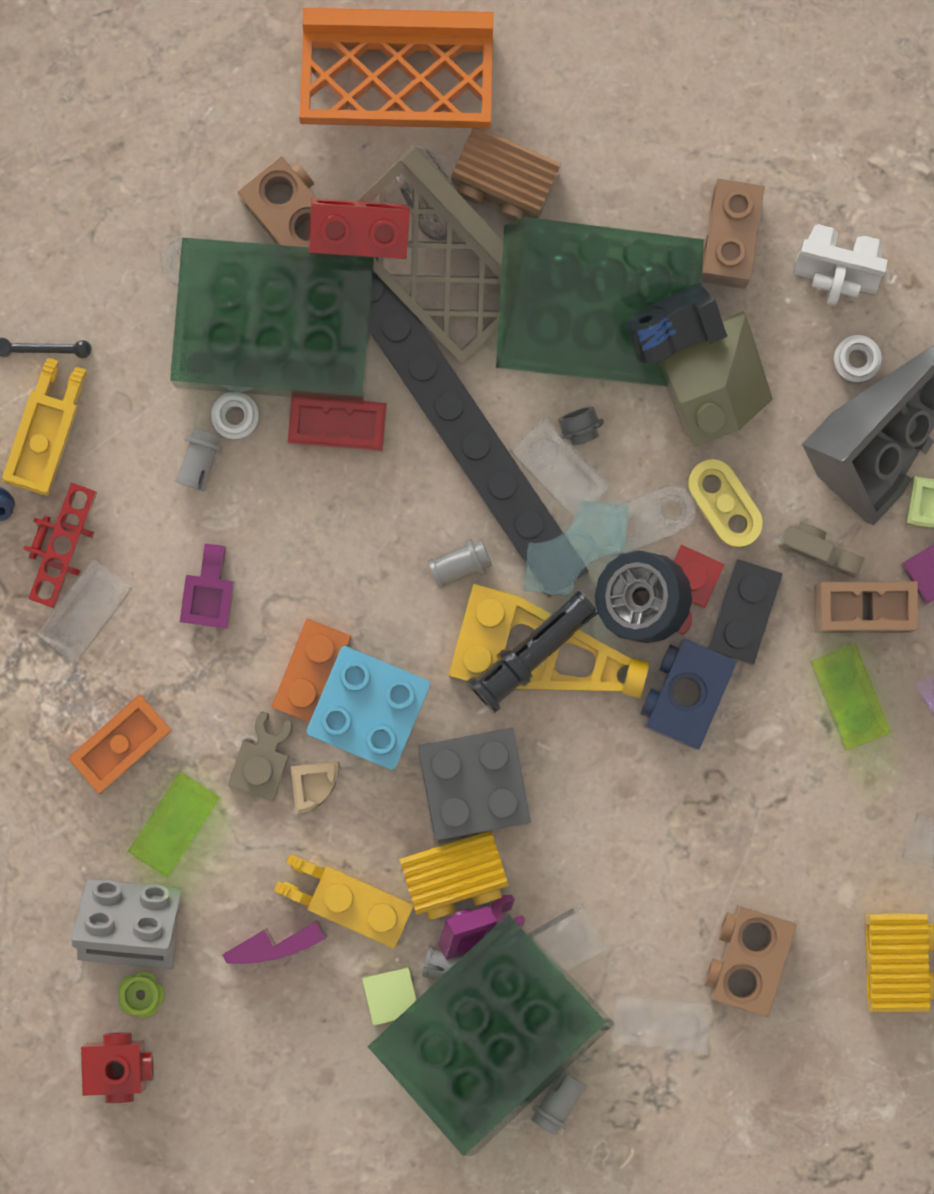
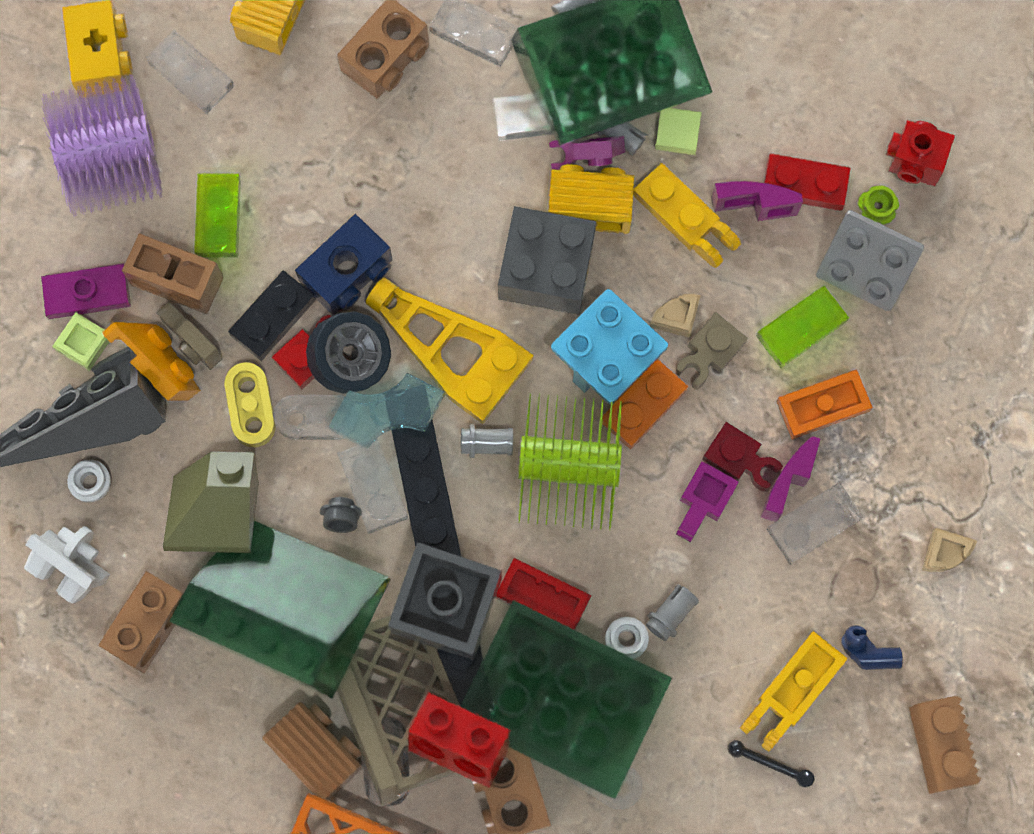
camera: 160 degrees left, 10 degrees down
(50, 553) = (827, 579): red piece -> none
(124, 661) = (795, 472): none -> magenta slope
(194, 655) = (736, 452): none -> dark red plate
(229, 992) = (818, 182): none -> red plate
(357, 562) = (571, 461): none -> lime piece
(430, 366) = (445, 601): none -> dark grey brick
(516, 665) = (476, 335): black pin -> none
(675, 324) = (224, 555): black leg -> none
(843, 509) = (156, 359): none -> light orange wing

